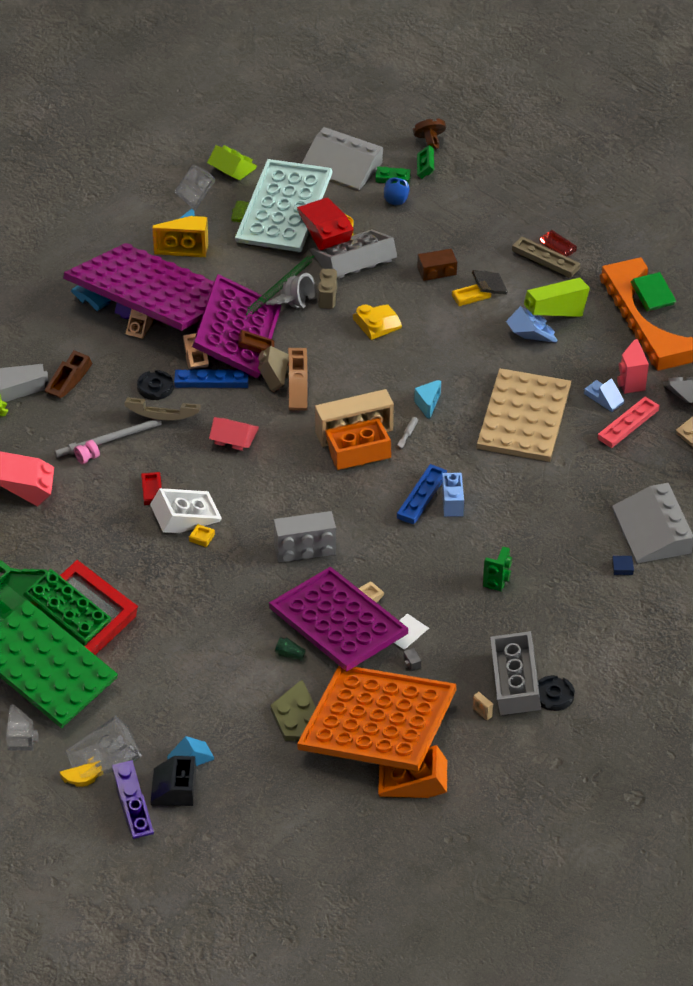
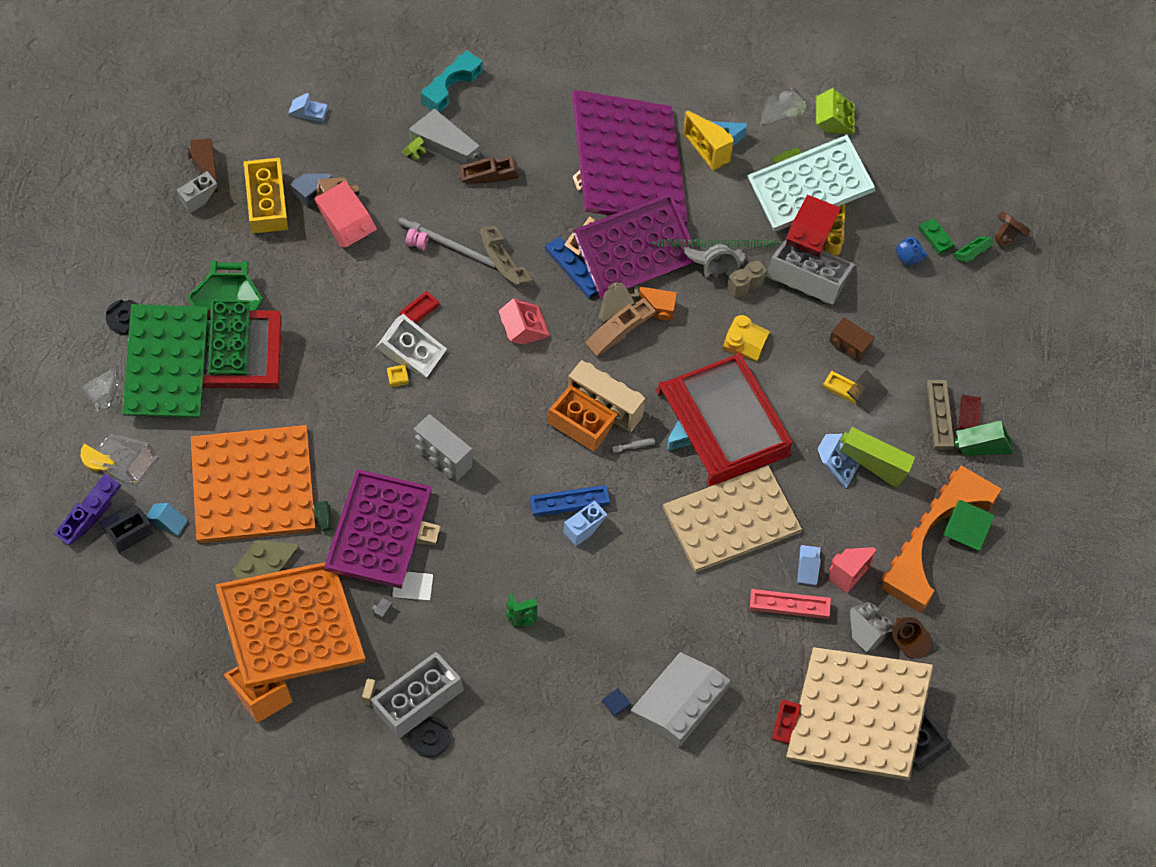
camera: 50 degrees right, 15 degrees up
(155, 385) = (533, 234): black tile -> none
(211, 681) = (252, 484): none -> orange plate
(253, 342) = (628, 272): reddish brown tile -> none
(299, 340) = (661, 301): none -> orange slope
(349, 157) = (916, 187): light grey slope -> none
(439, 362) = (727, 419): none -> piece
(592, 243) = (984, 440): none -> slope

